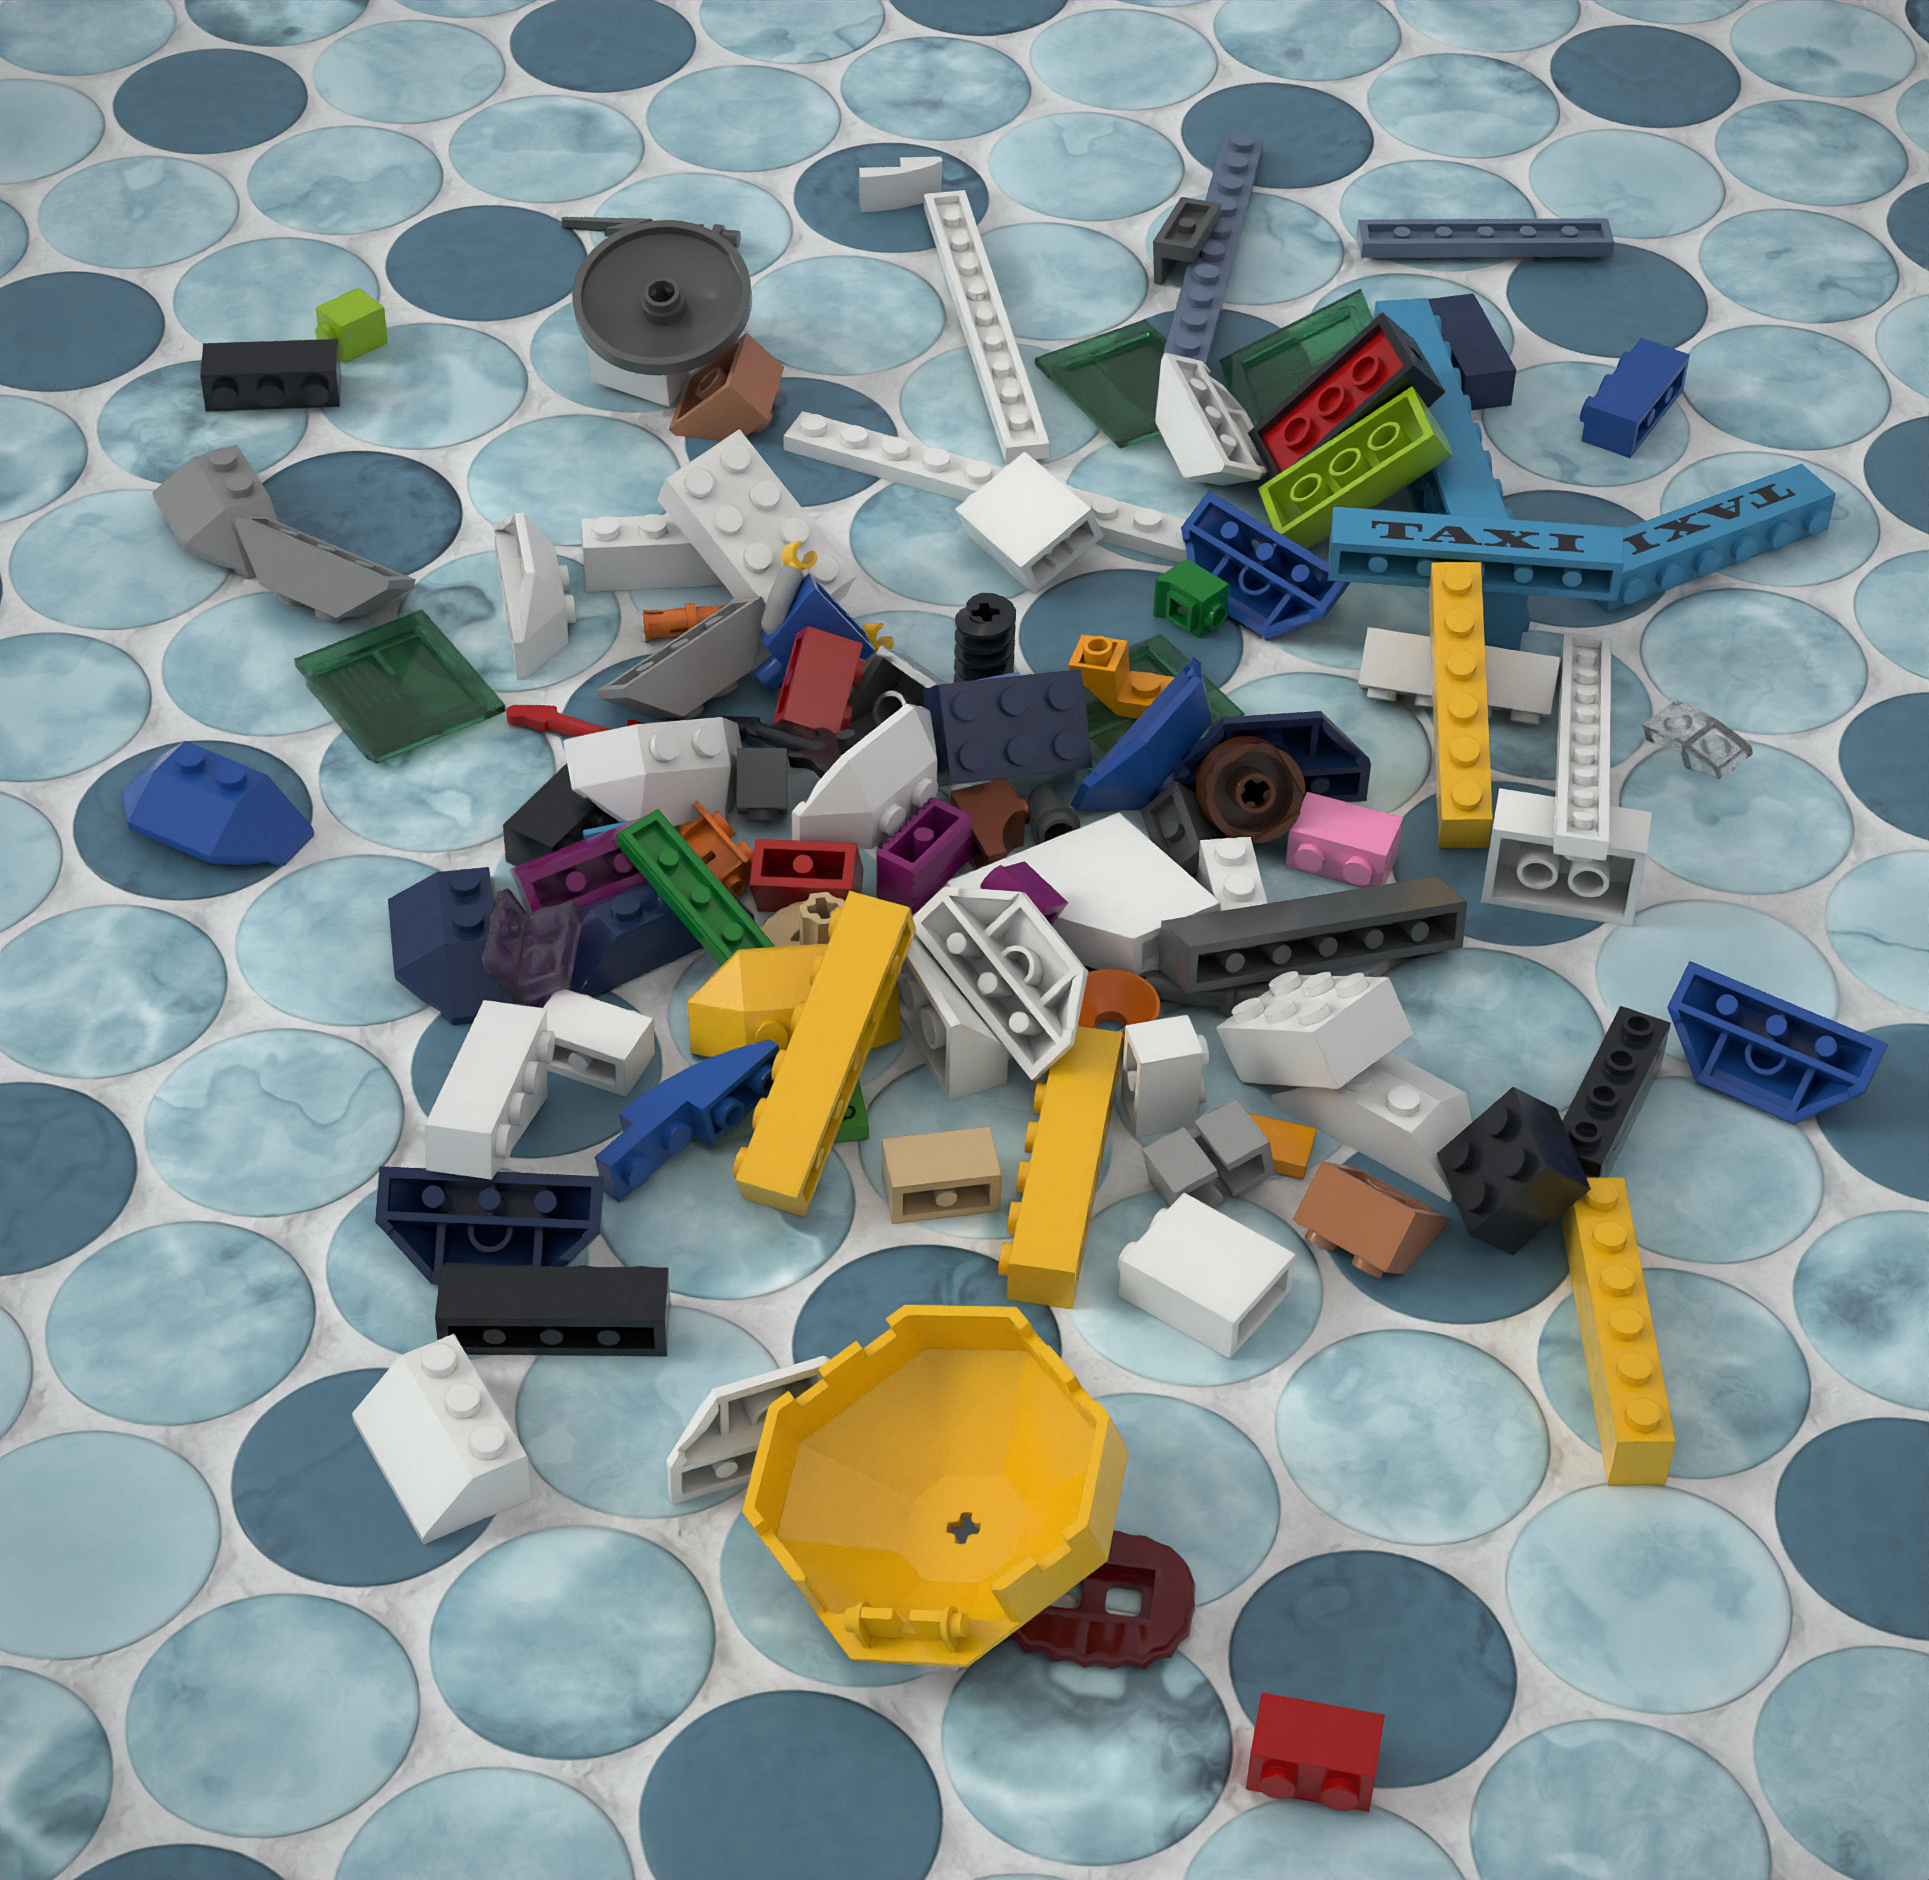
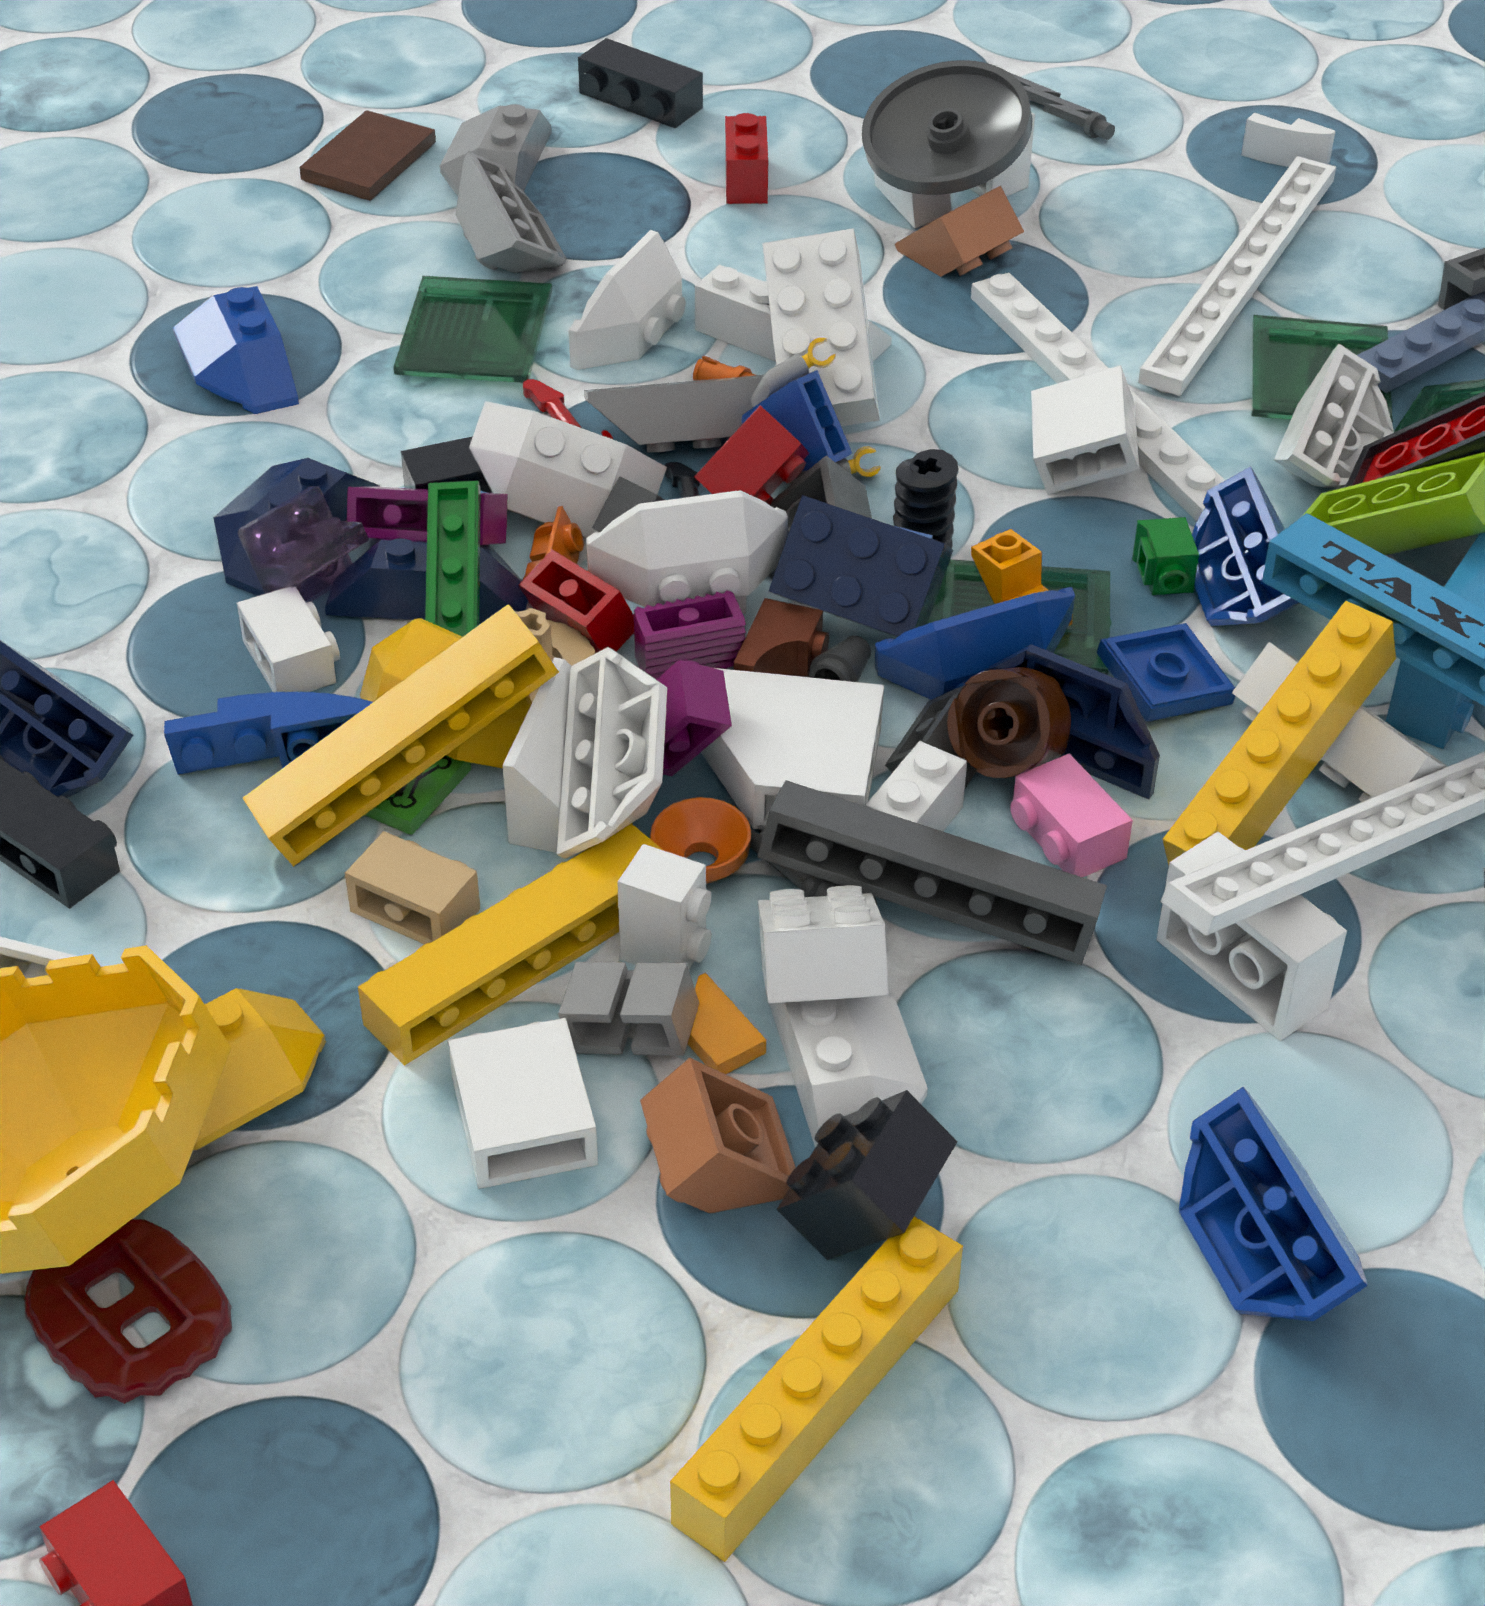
camera: 40 degrees right, 0 degrees up
(84, 566) = (367, 155): none -> reddish brown tile
(354, 321) = (736, 73): lime brick -> none
(464, 408) = (746, 159): none -> red brick
(490, 1091) = (127, 627): white wedge -> none
(1284, 685) = (1167, 671): none -> blue tile
(1615, 1089) = (1050, 1176): black piece -> none

